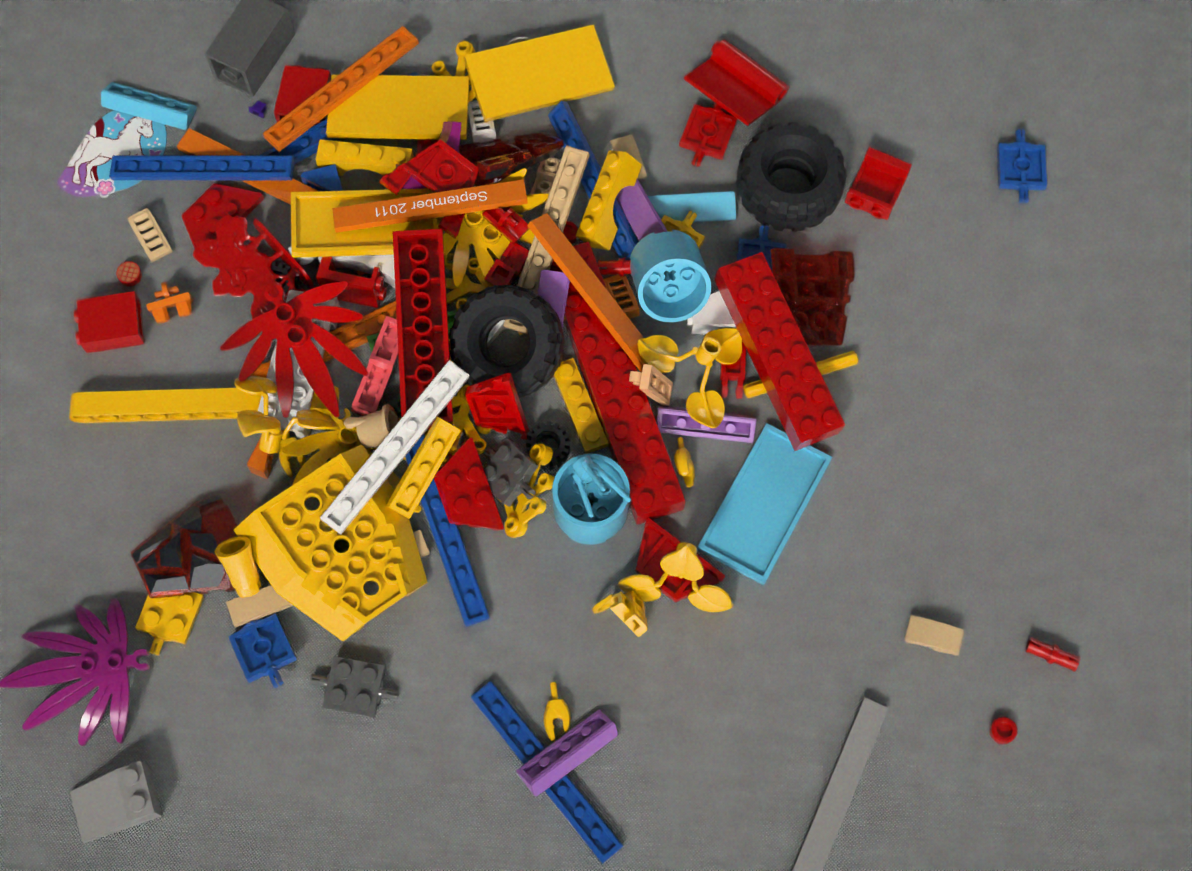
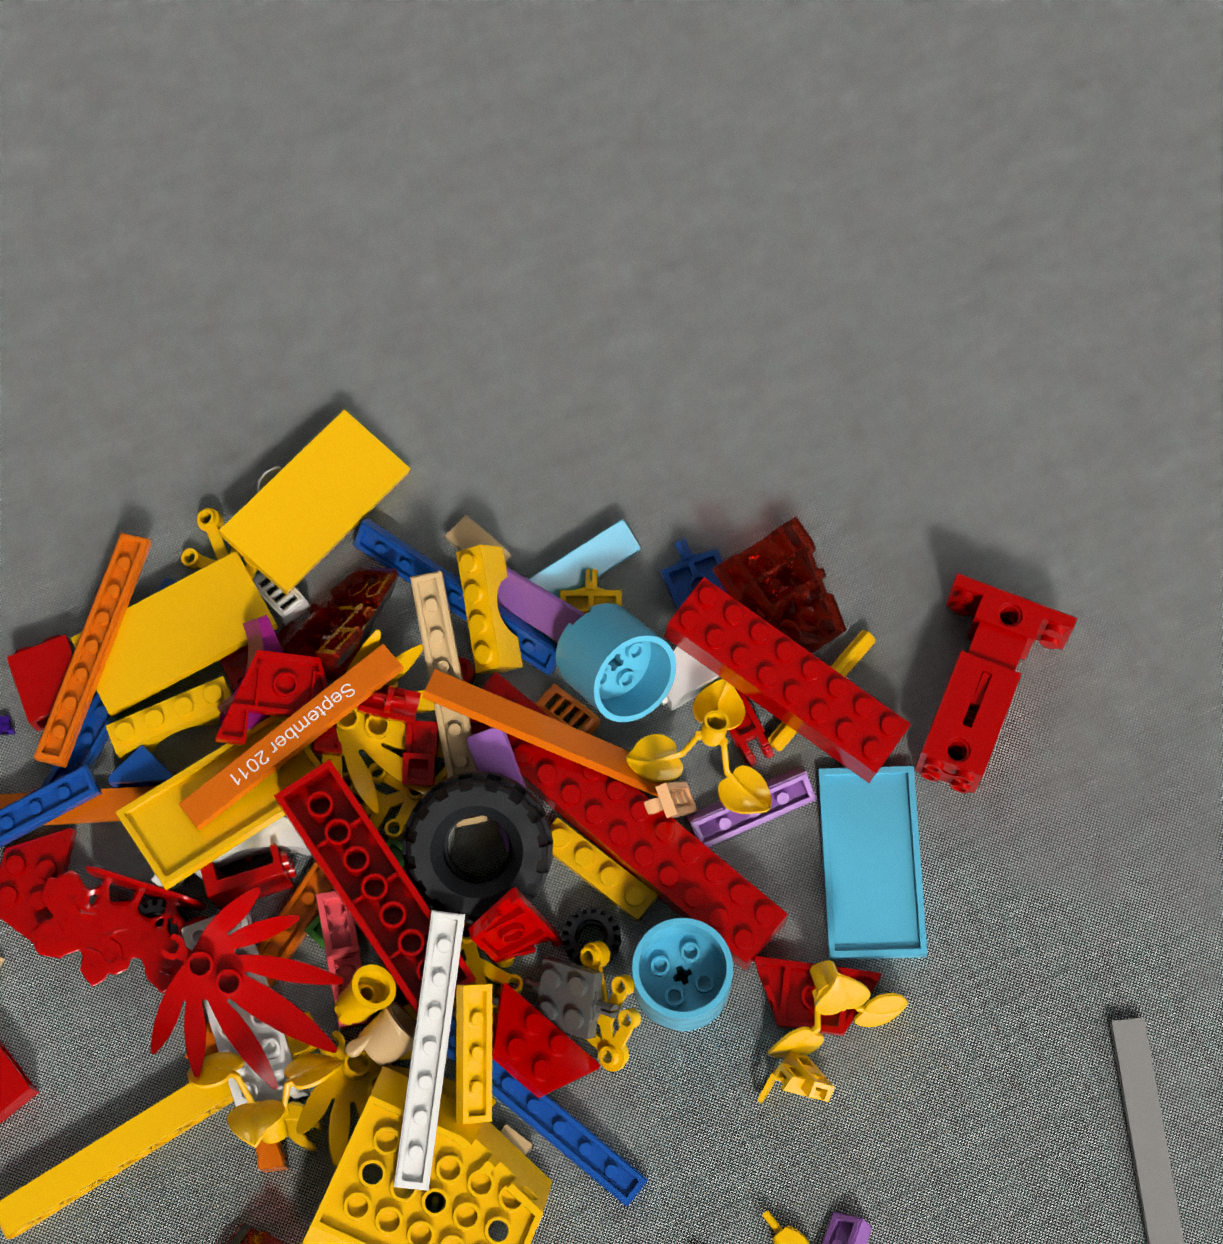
camera: 25 degrees left, 0 degrees up
(160, 308) = (34, 1039): orange hips -> none
(378, 390) = (368, 992): none -> yellow plant
(545, 176) = (400, 622): tan slope -> none
(589, 471) = (668, 948): medium azure plant -> none
(619, 267) = (541, 683): red pin -> none
(684, 463) = (757, 869): yellow hand -> none
(707, 132) = (549, 464): red plate -> none
(737, 83) = (548, 389): red door -> none
(795, 149) = (686, 430): black tyre -> none
(878, 184) = (774, 421): red panel -> none
(915, 425) = (985, 678): none -> red brick
(934, 634) = (1143, 904): tan slope -> none
(1021, 166) = (917, 314): blue plate -> none

